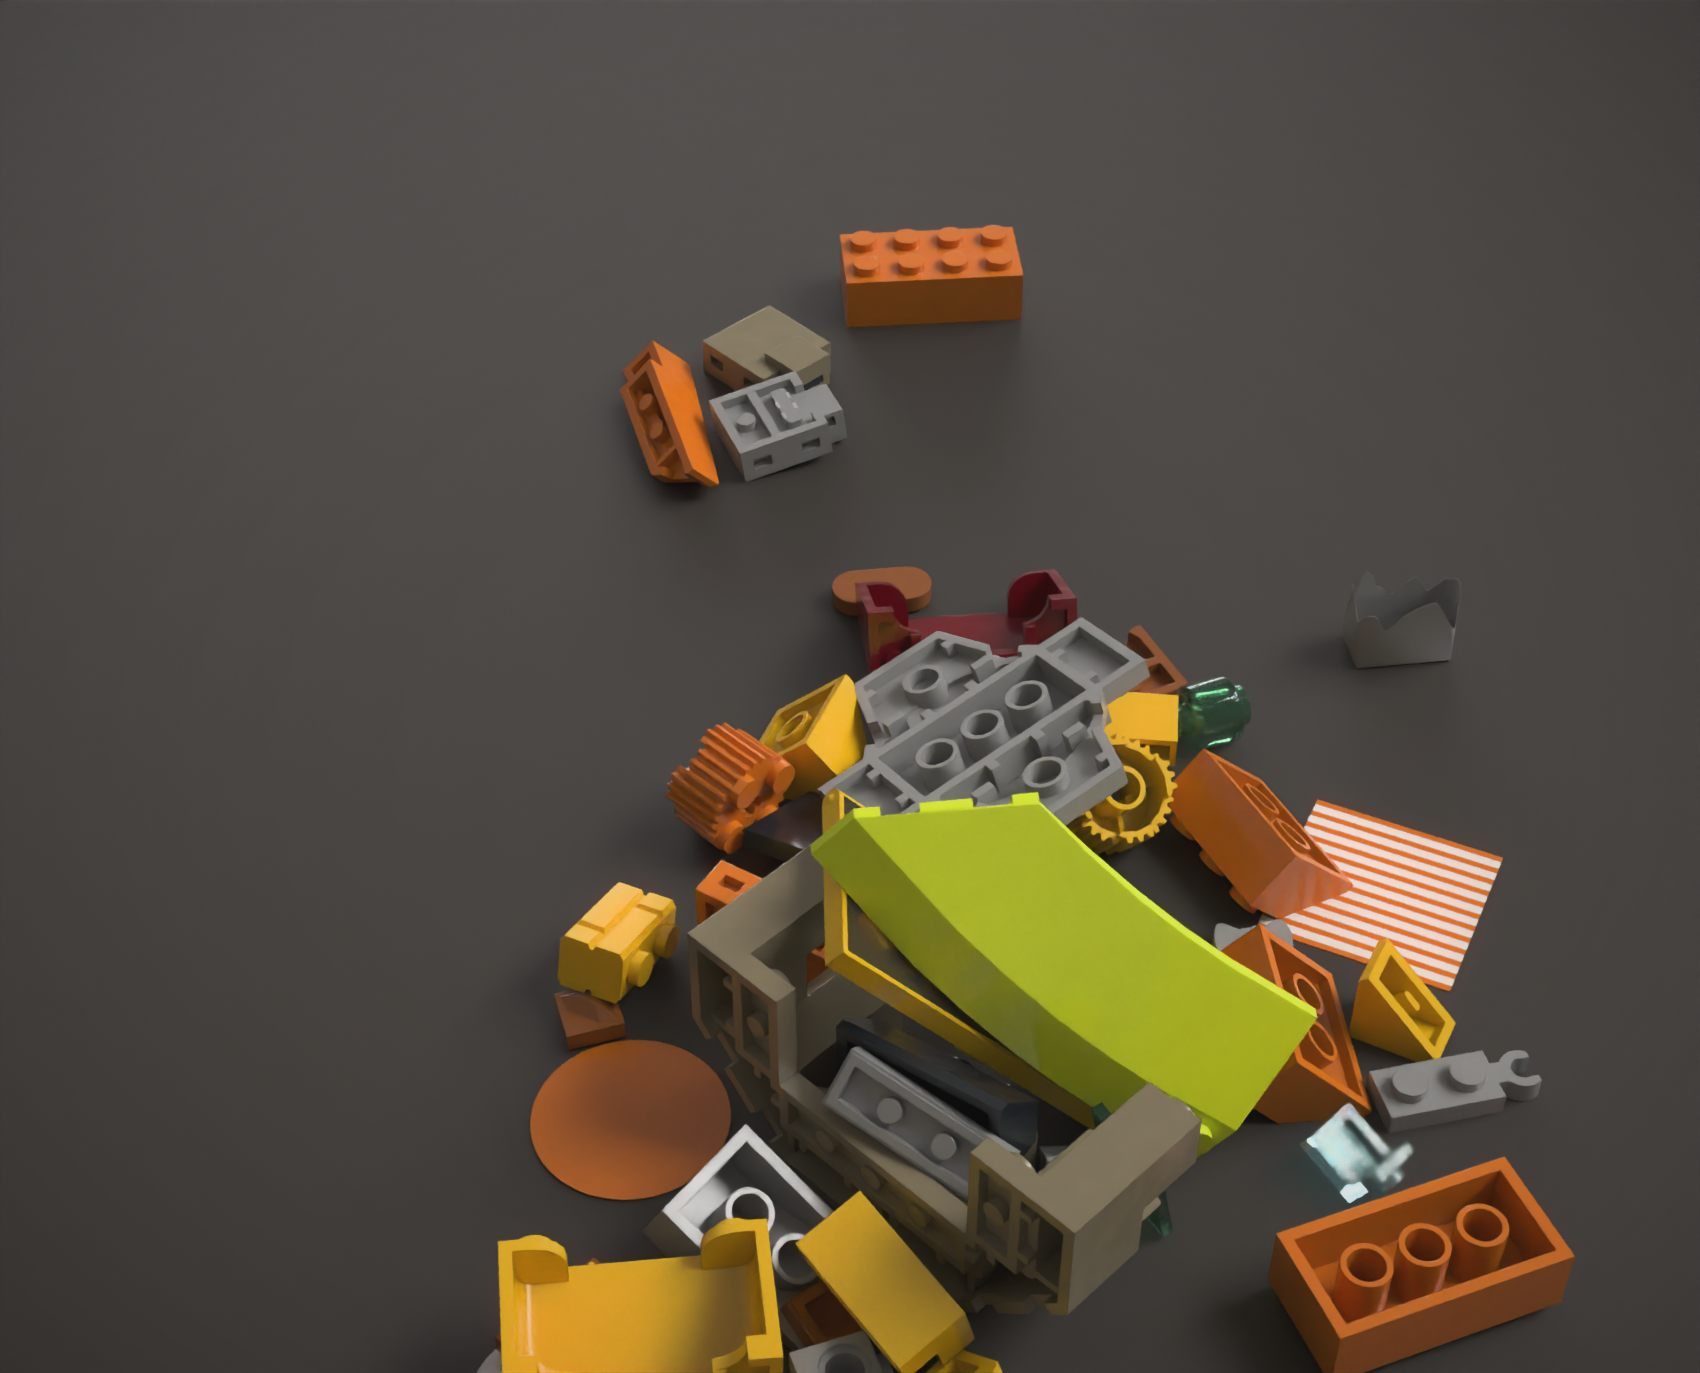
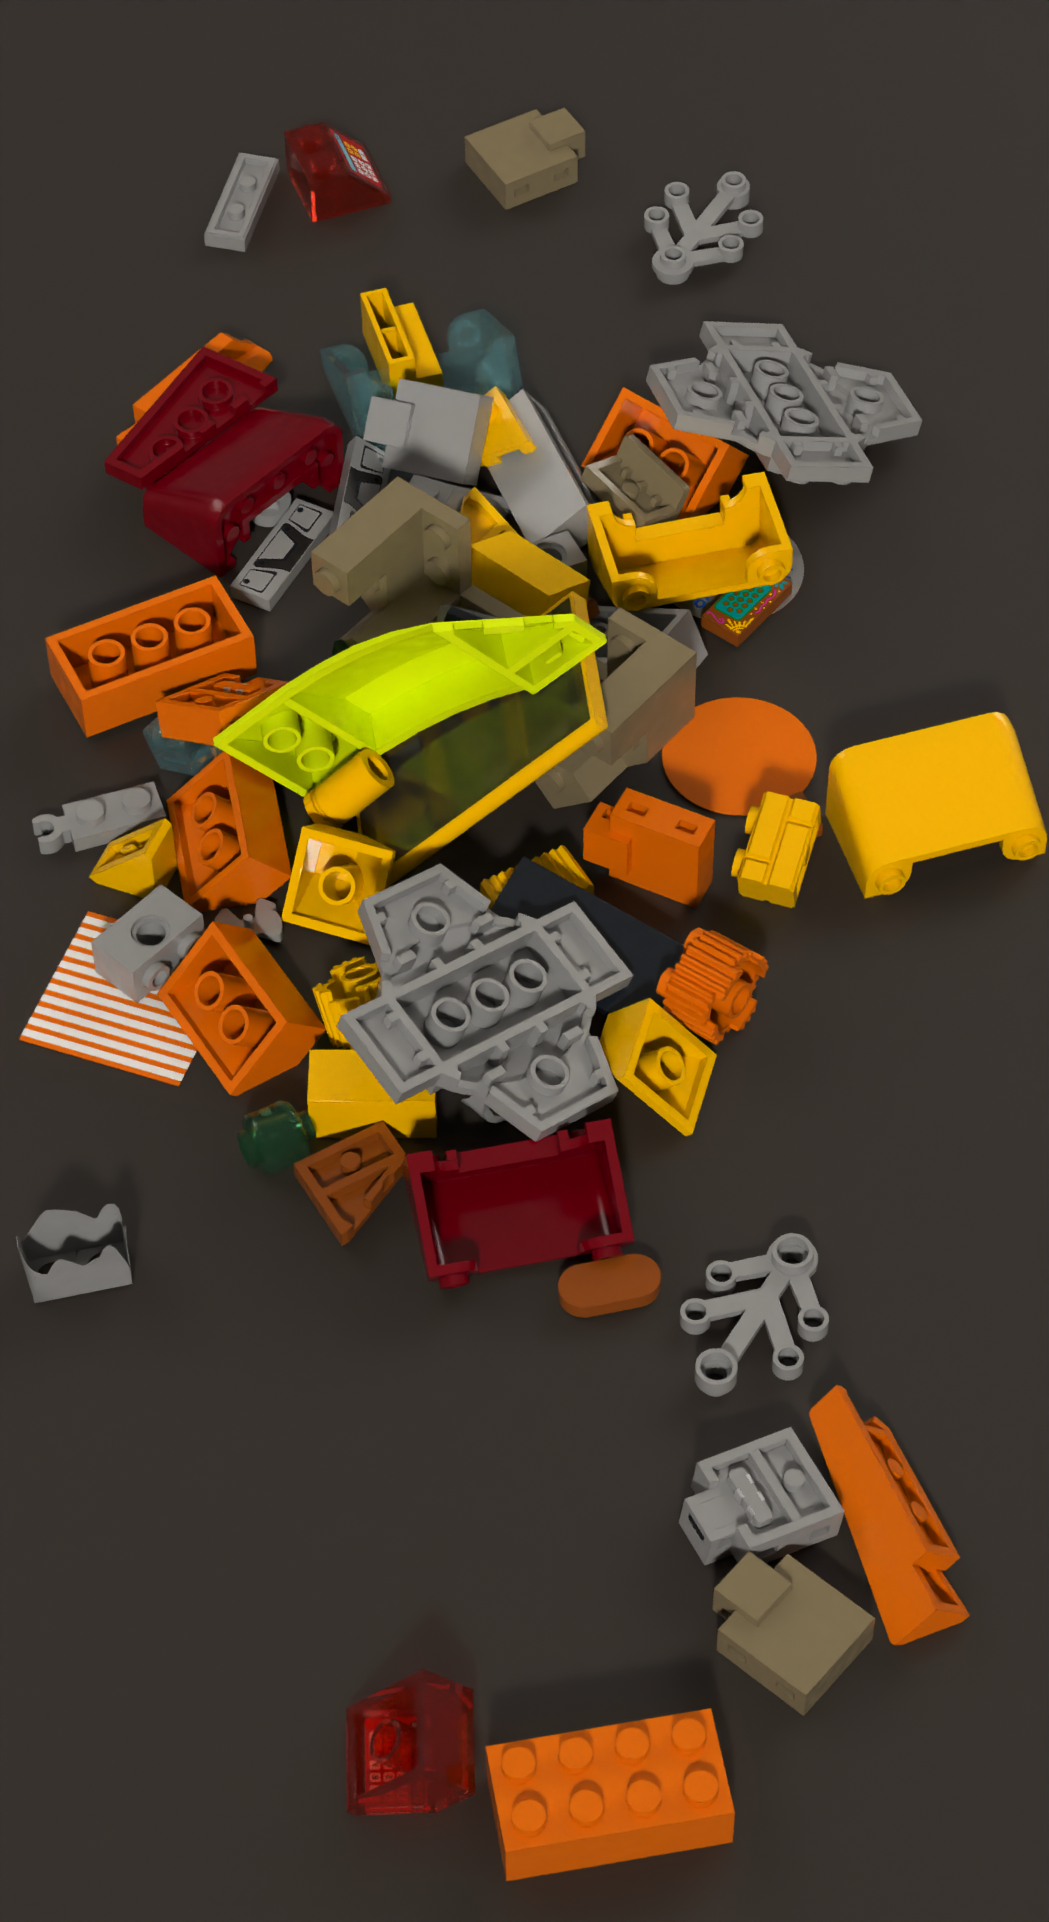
camera: 175 degrees right, 10 degrees up
(411, 969) = (932, 798): none -> yellow windscreen
(710, 592) = (757, 1308): none -> light grey plant
(1078, 310) = (411, 1747): none -> clear red slope
(1301, 1150) = (211, 706): none -> orange piece
(1368, 903) = (147, 943): none -> light grey brick

